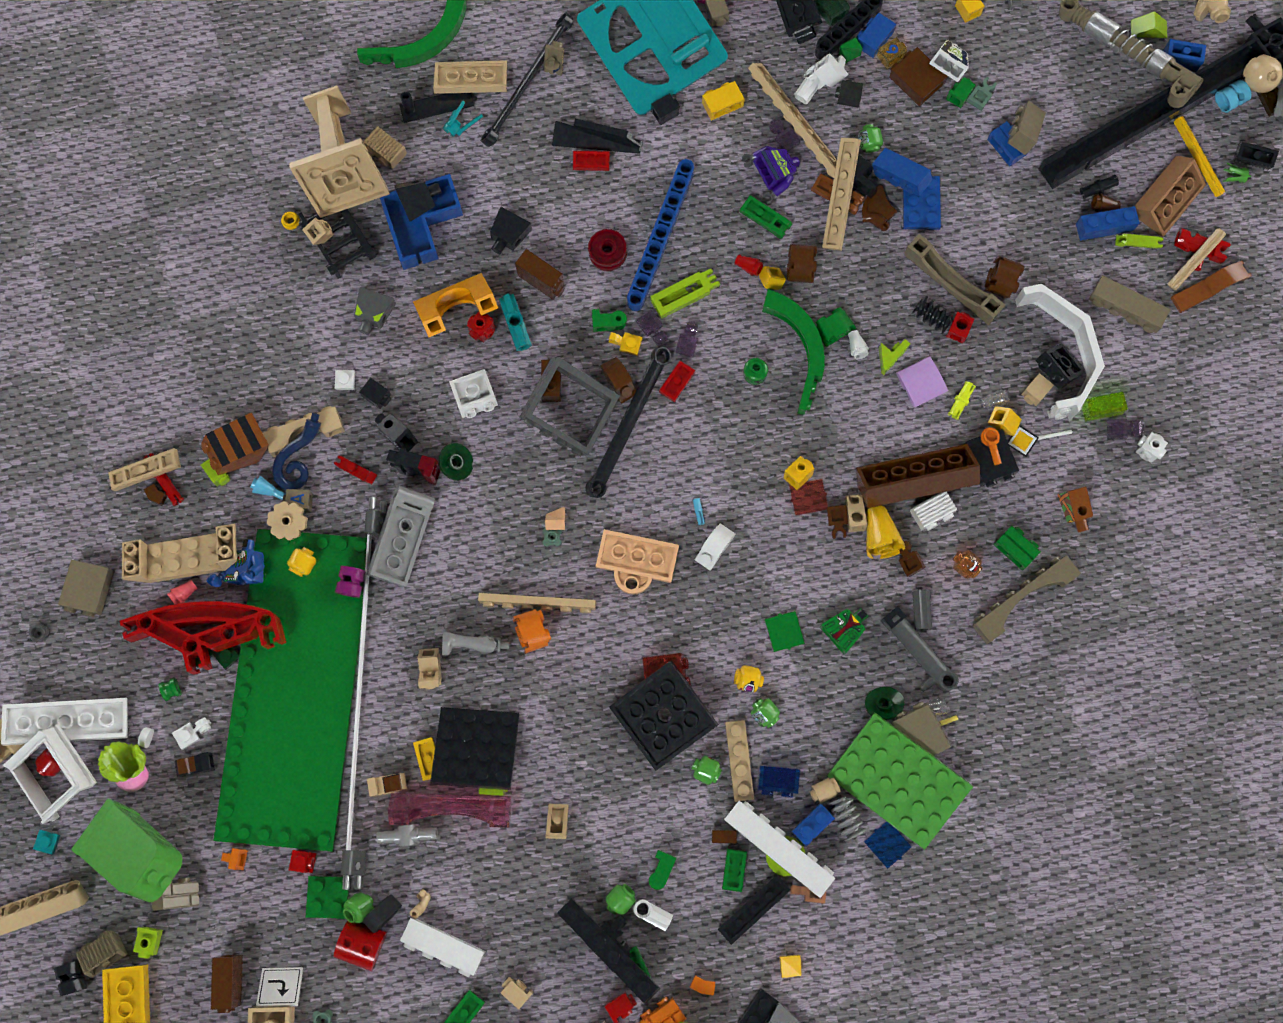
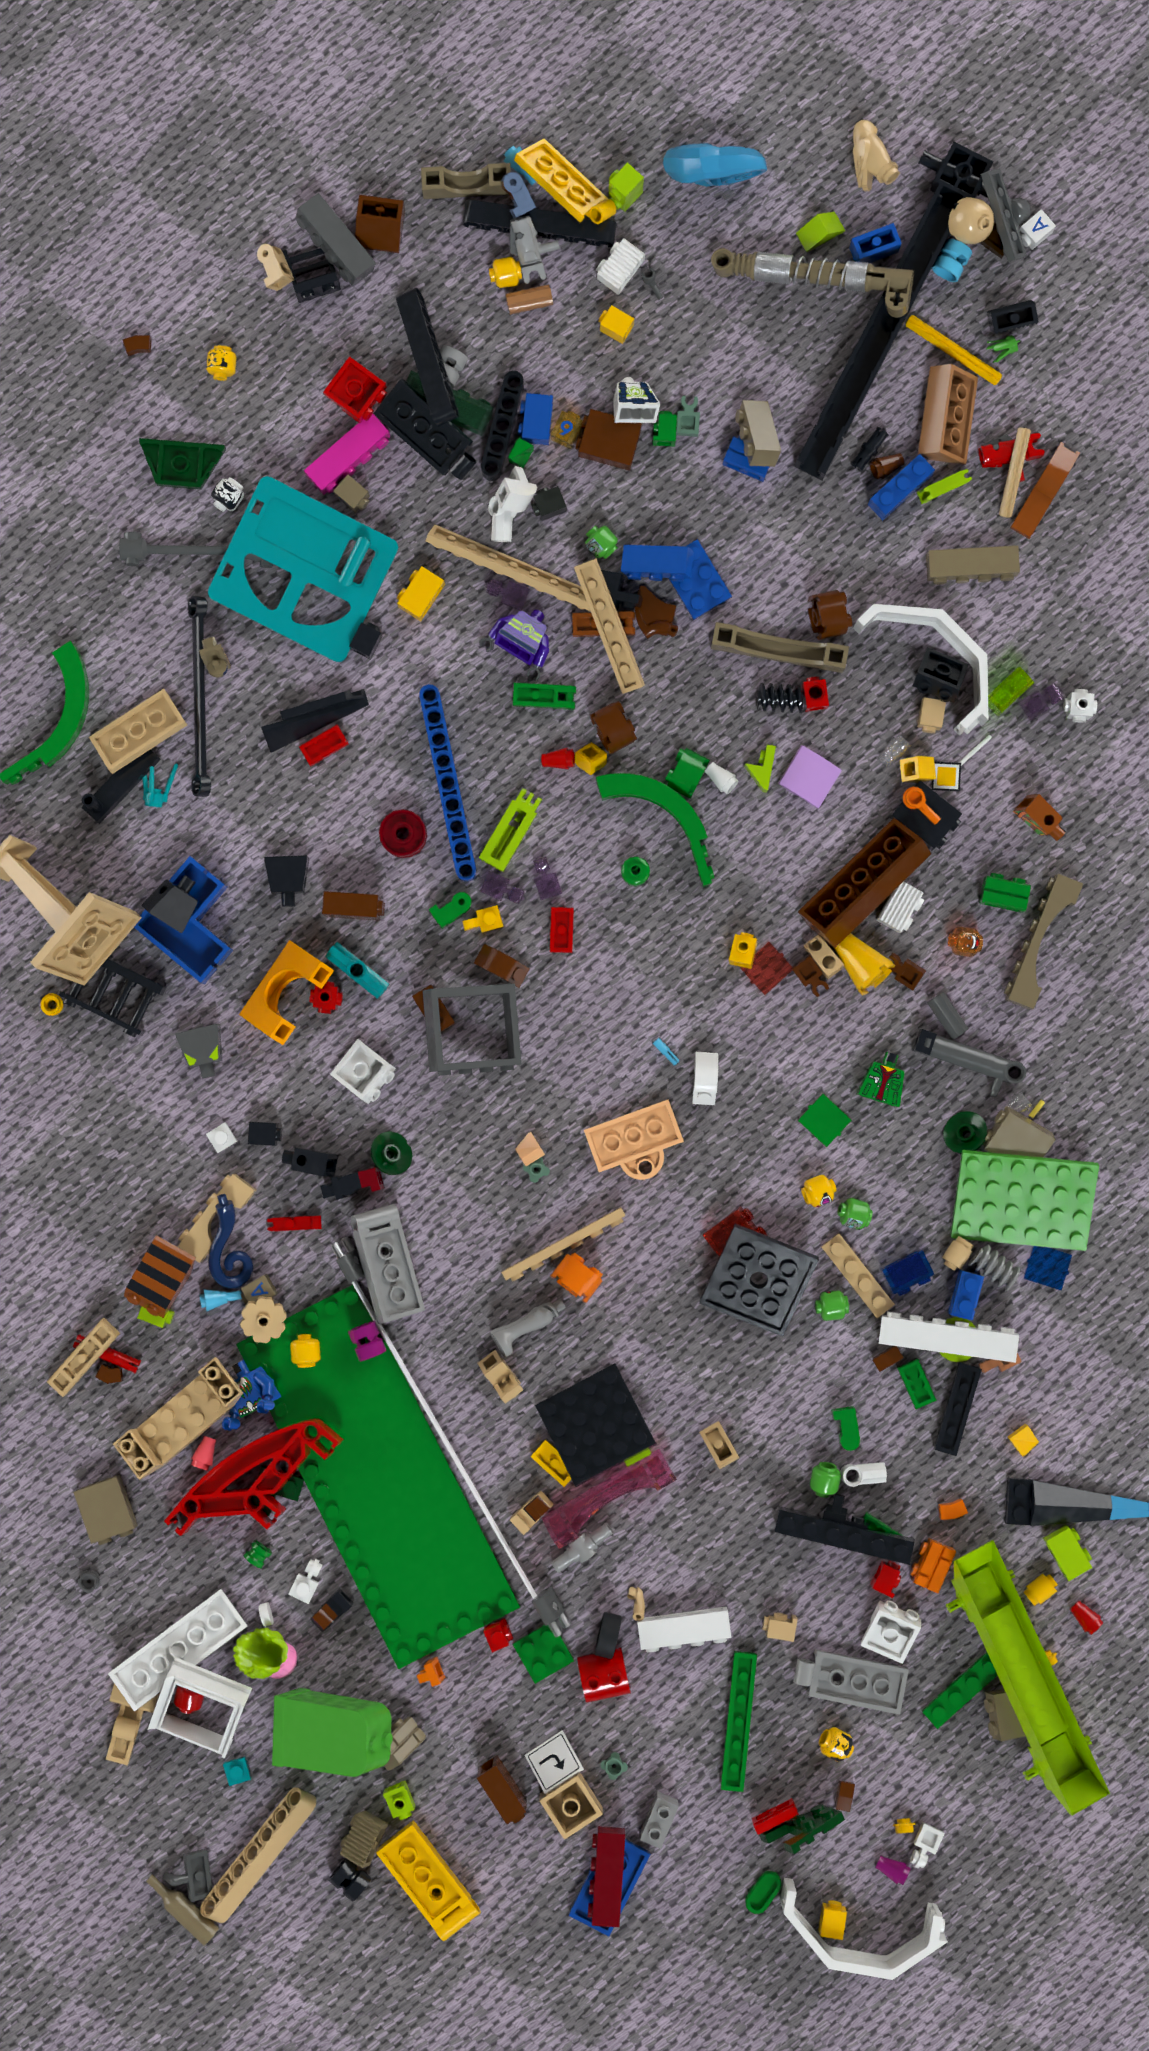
camera: 30 degrees left, 10 degrees up
(321, 229) = (97, 998): tan brick -> none
(358, 907) = (580, 1644): bright green head -> none
(385, 148) = (98, 865): tan brick -> none
(628, 422) = (539, 1003): black piece -> none
(961, 400) = (861, 772): neon yellow pin -> none

